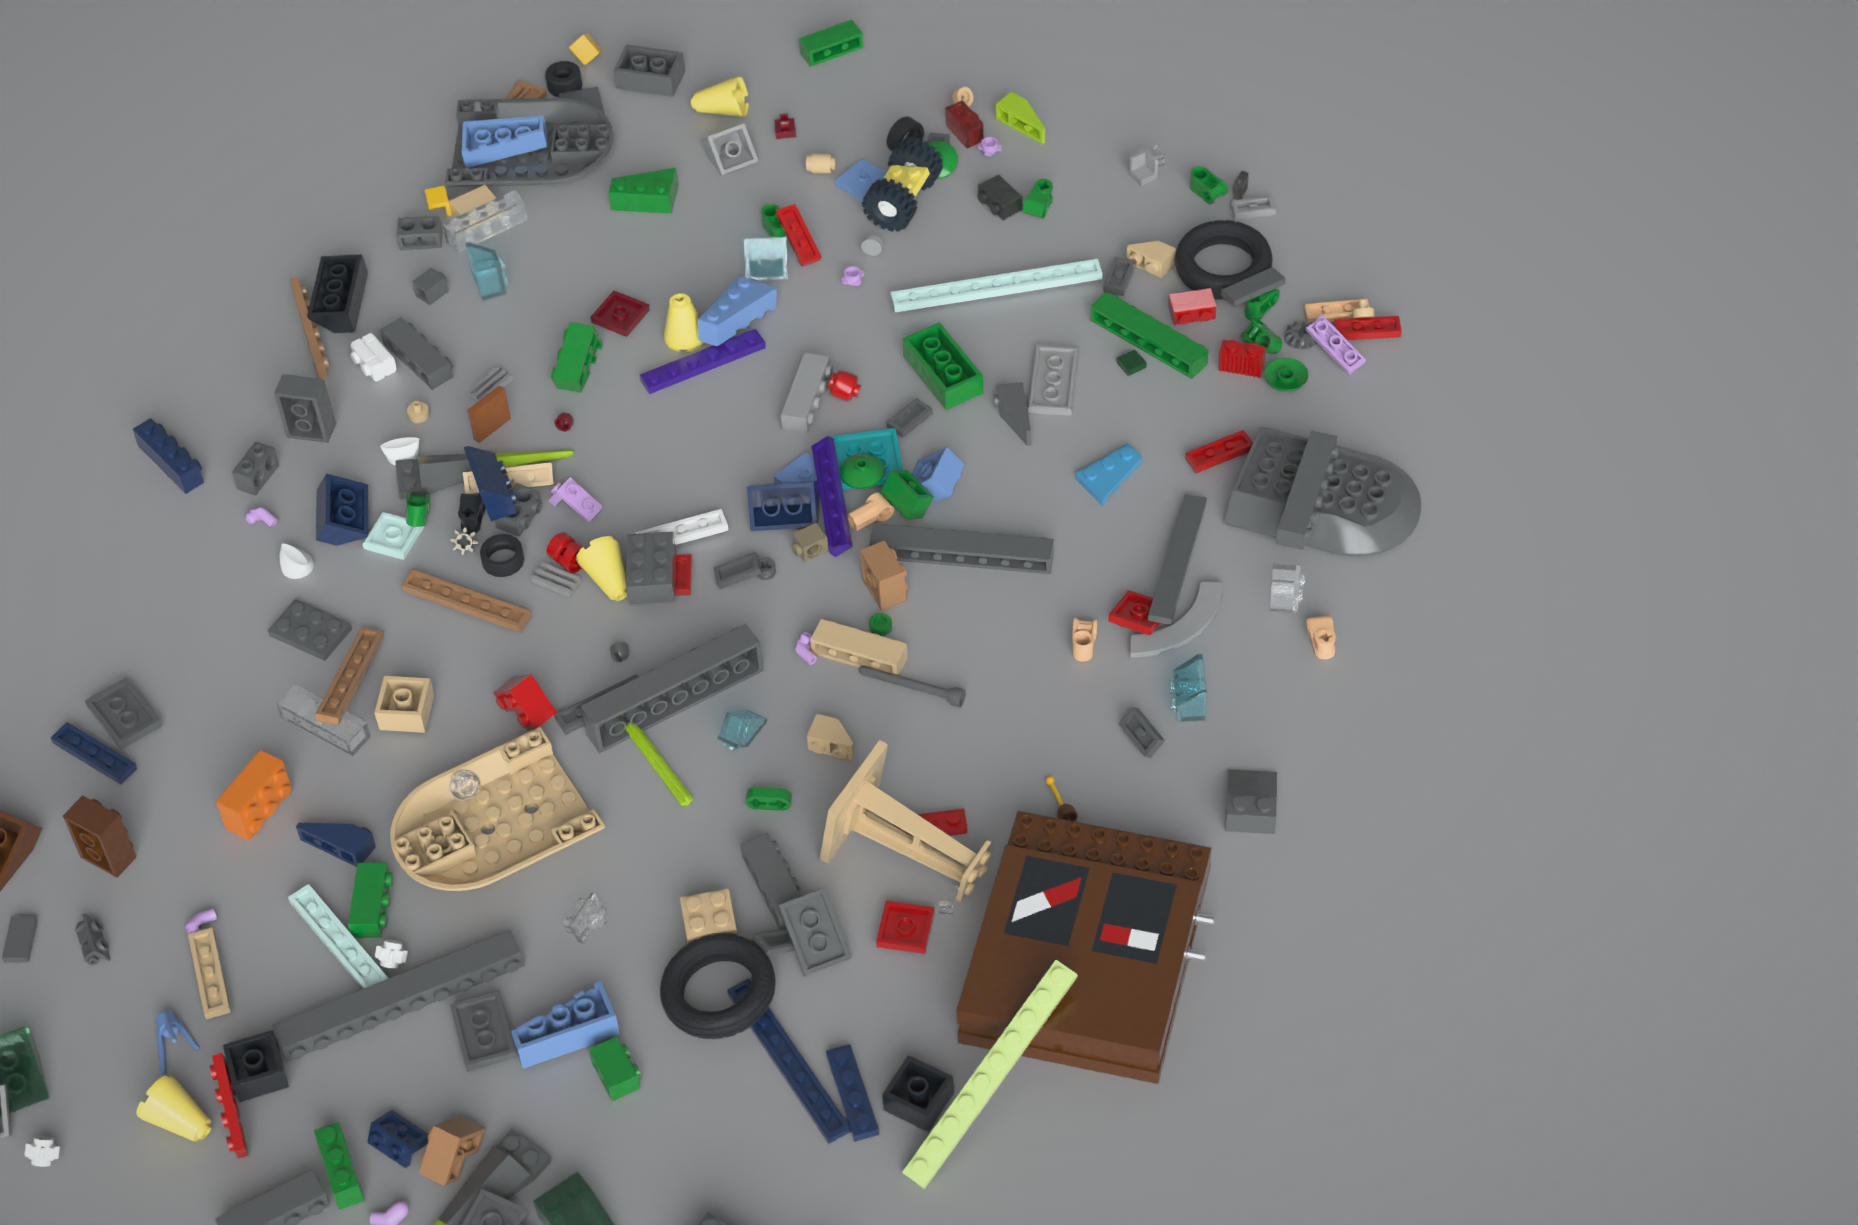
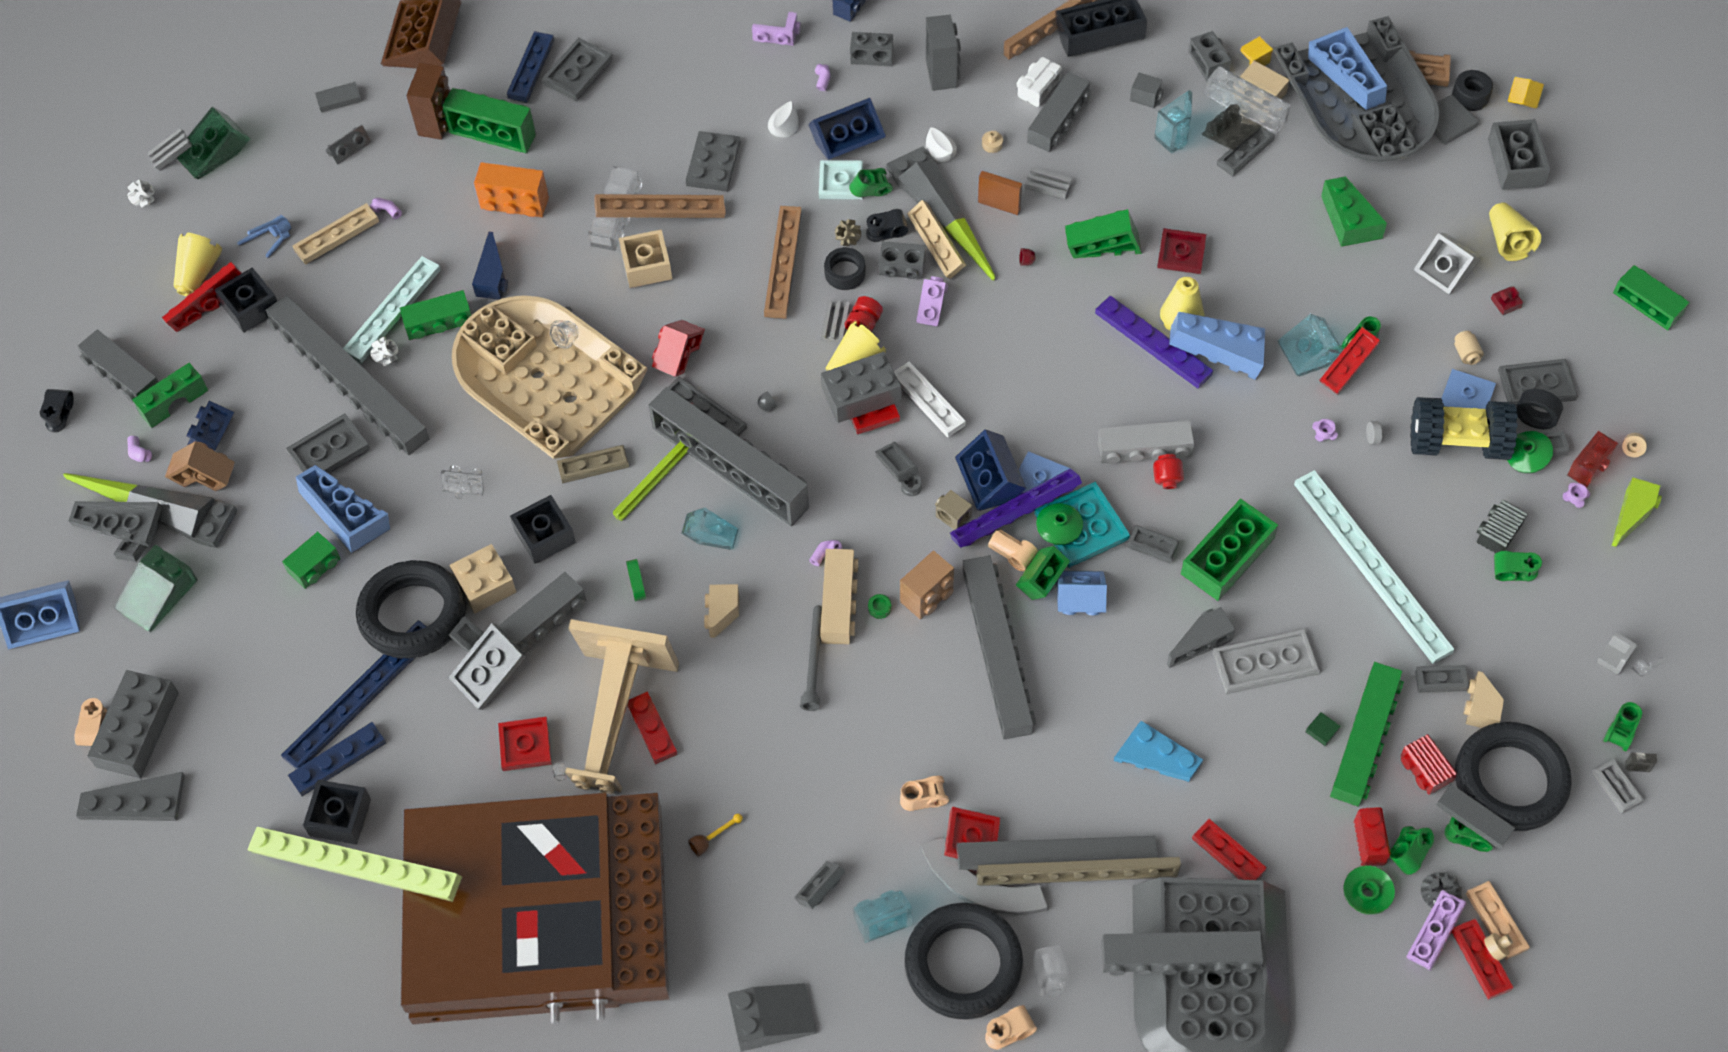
camera: 70 degrees right, 10 degrees up
(155, 792) = (489, 120): none -> green brick
(191, 534) = (778, 35): none -> lavender bracket
(491, 483) = (903, 220): dark blue slope -> none
(509, 241) = (1230, 128): none -> clear smoke hinge
(534, 242) = (1236, 159): none -> dark grey tile
(617, 808) = (592, 464): none -> dark tan tile
(679, 857) = (543, 529): none -> black brick
(871, 136) = (1546, 375): none -> dark grey tile
(1200, 550) = (1078, 871): none -> dark tan tile
(1249, 681) = (957, 1004): none -> black tyre

